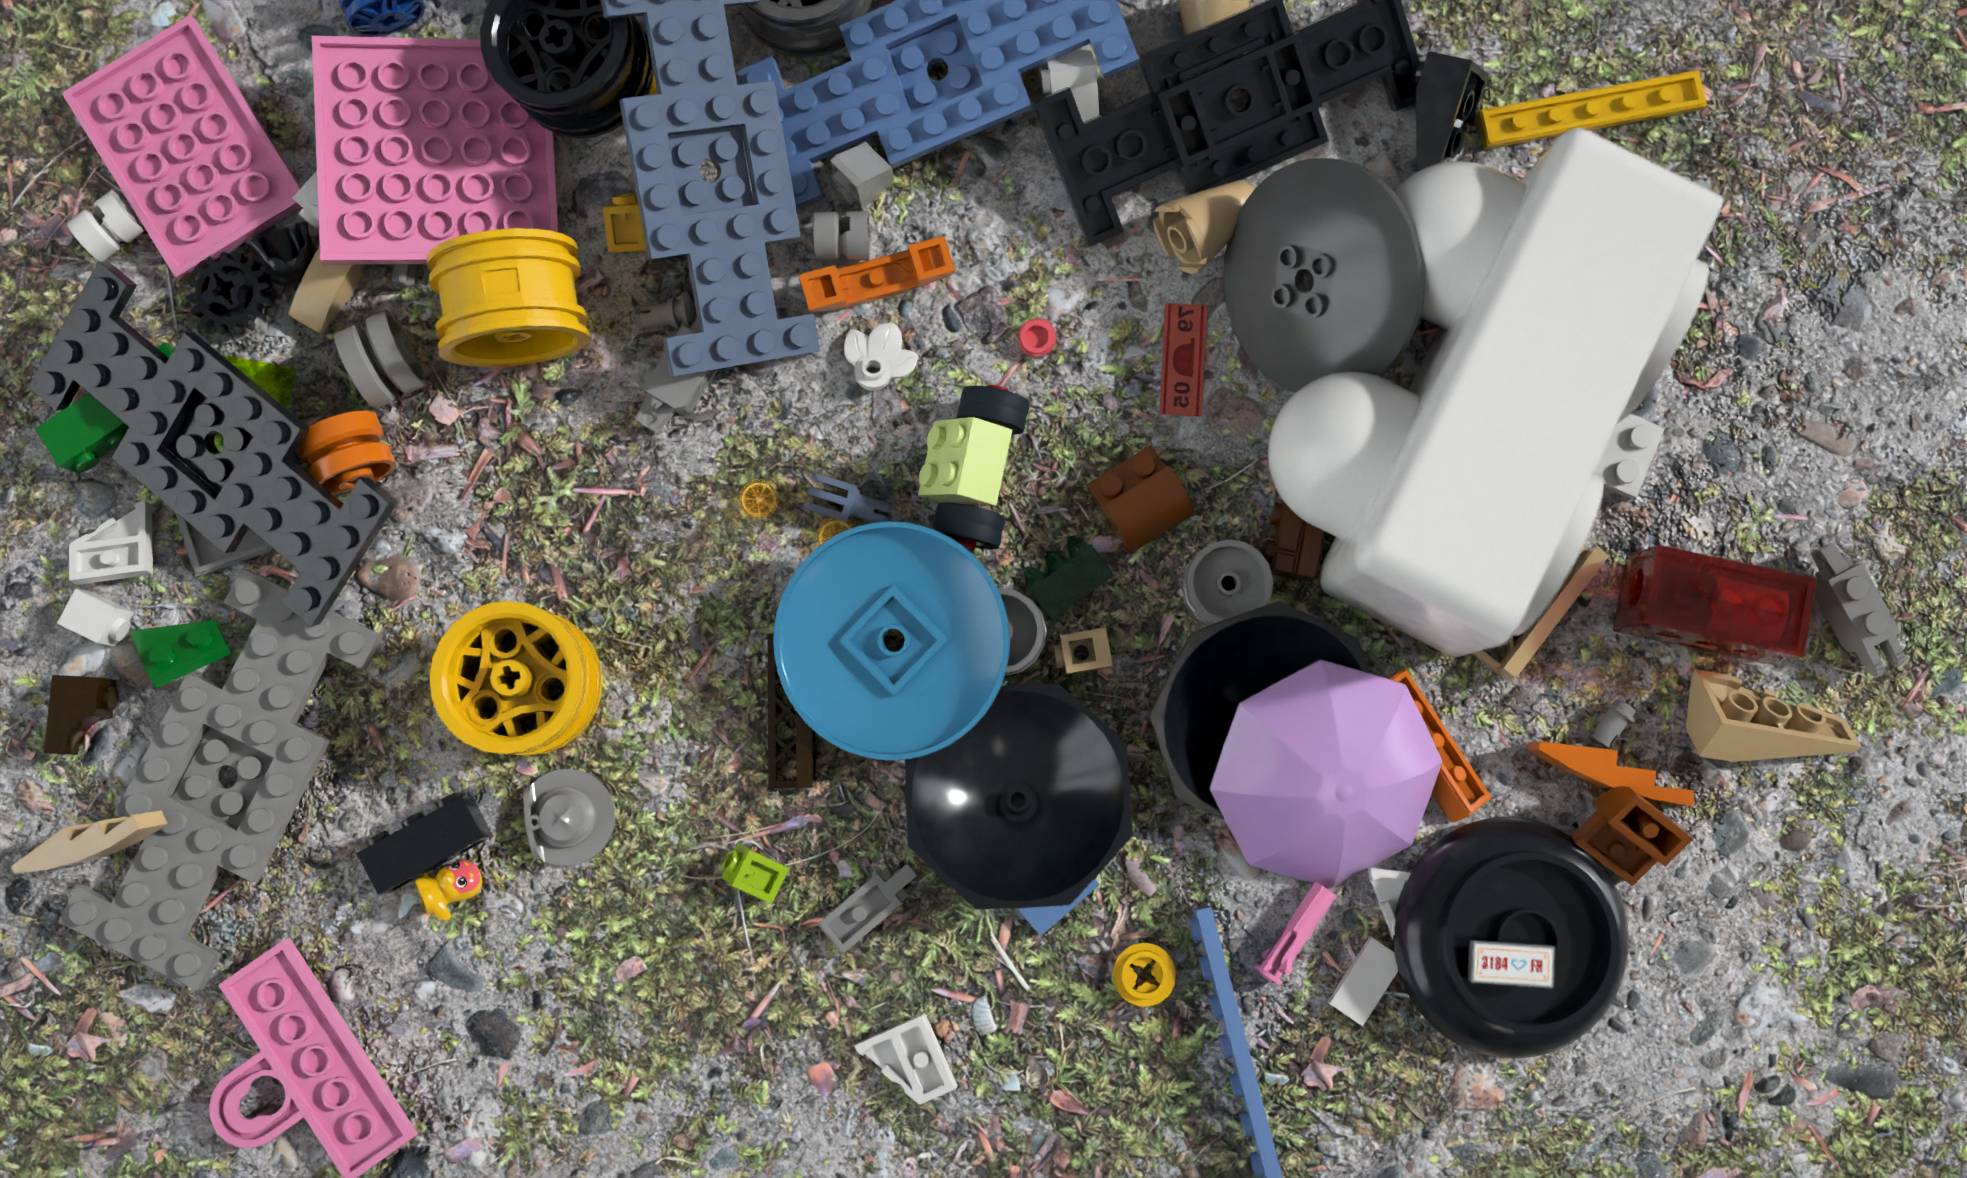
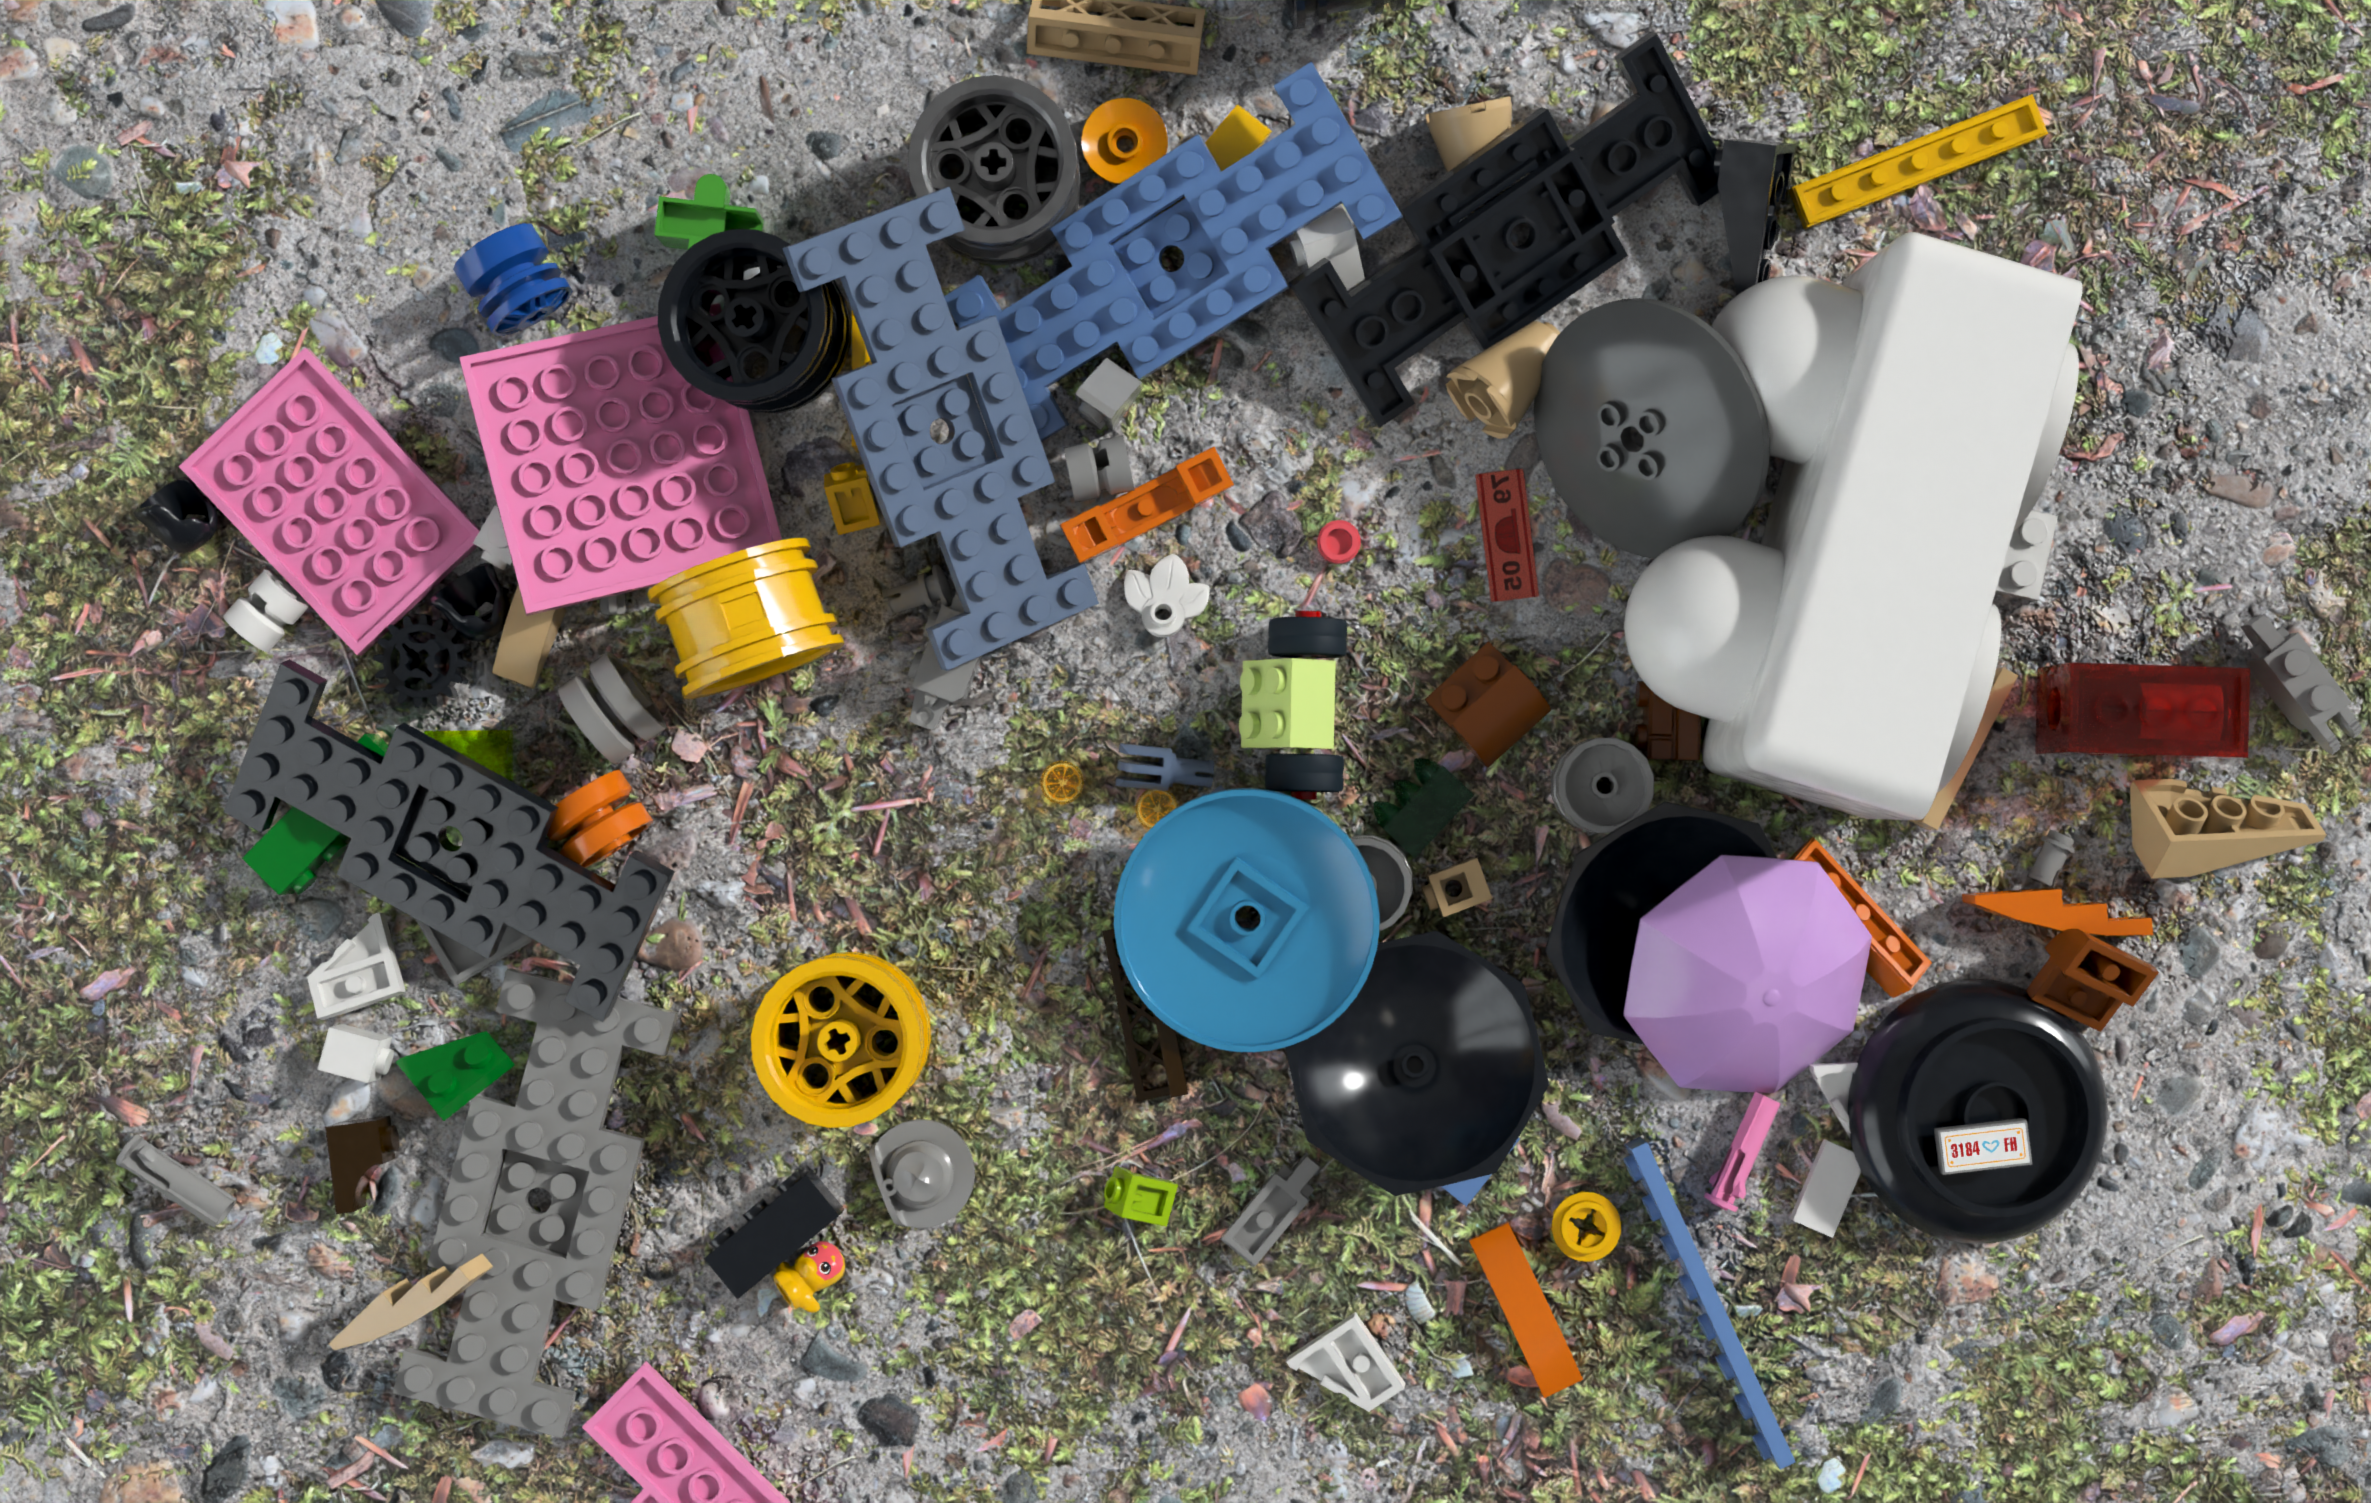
camera: 10 degrees left, 5 degrees up
(48, 135) = (166, 514): none -> black hair
(1077, 1040) = (1526, 1309): none -> orange slope

